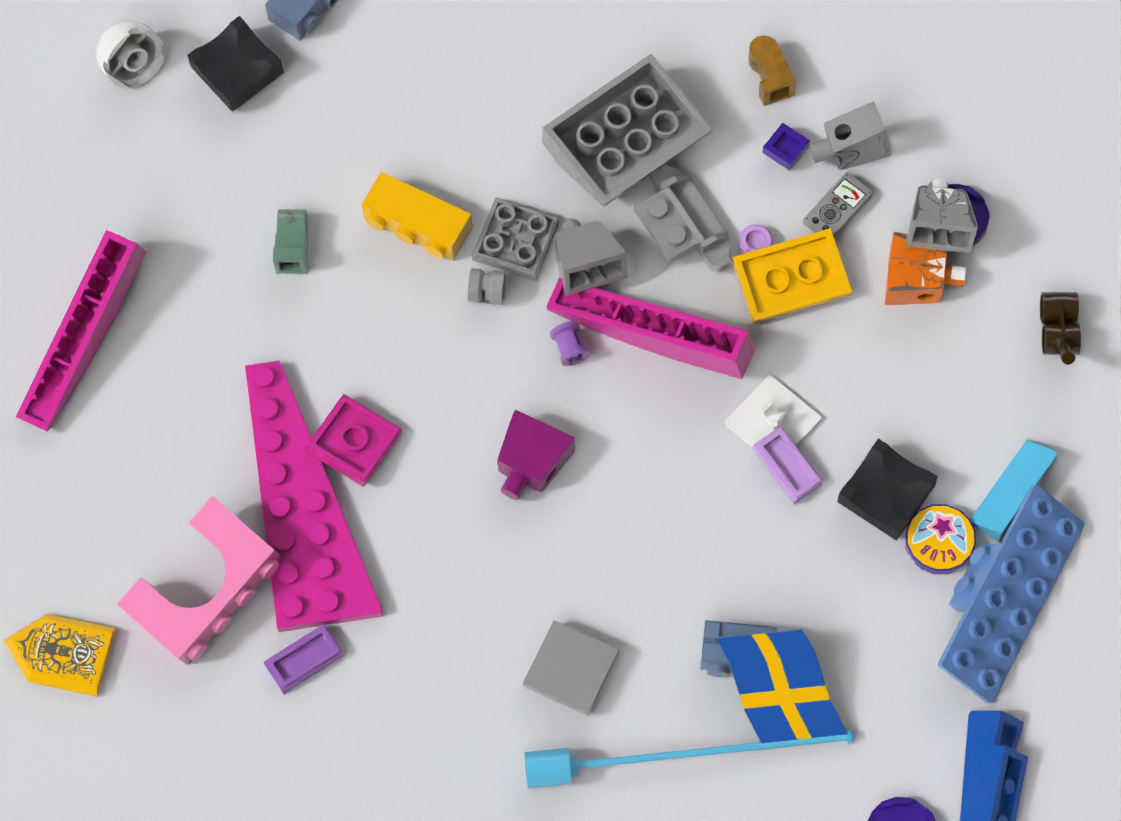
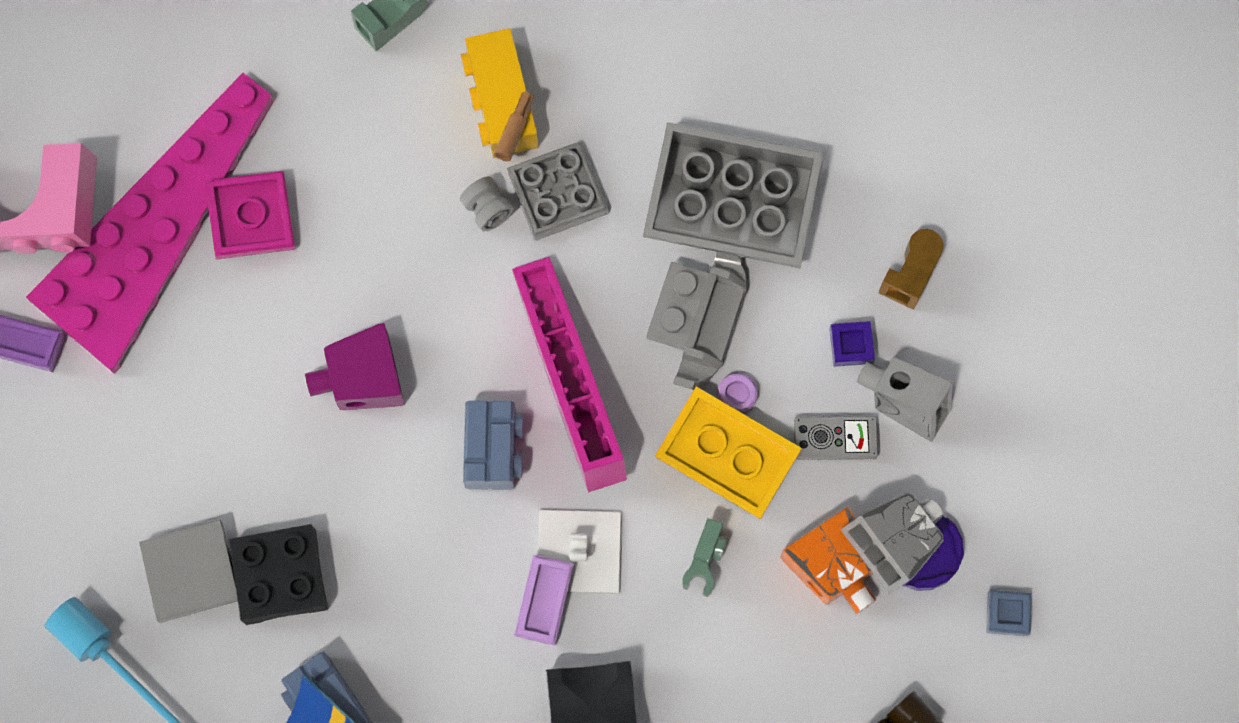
camera: 45 degrees right, 5 degrees up
(456, 223) = (514, 128): none -> medium nougat pin
(569, 343) = (495, 317): medium lavender bush -> none
(588, 256) = (583, 262): light grey torso -> none
(624, 612) = (278, 574): none -> black brick
(656, 413) = (490, 445): none -> sand blue brick
(843, 338) = (710, 547): none -> sand green plate
(1040, 200) = (1008, 613): none -> sand blue tile

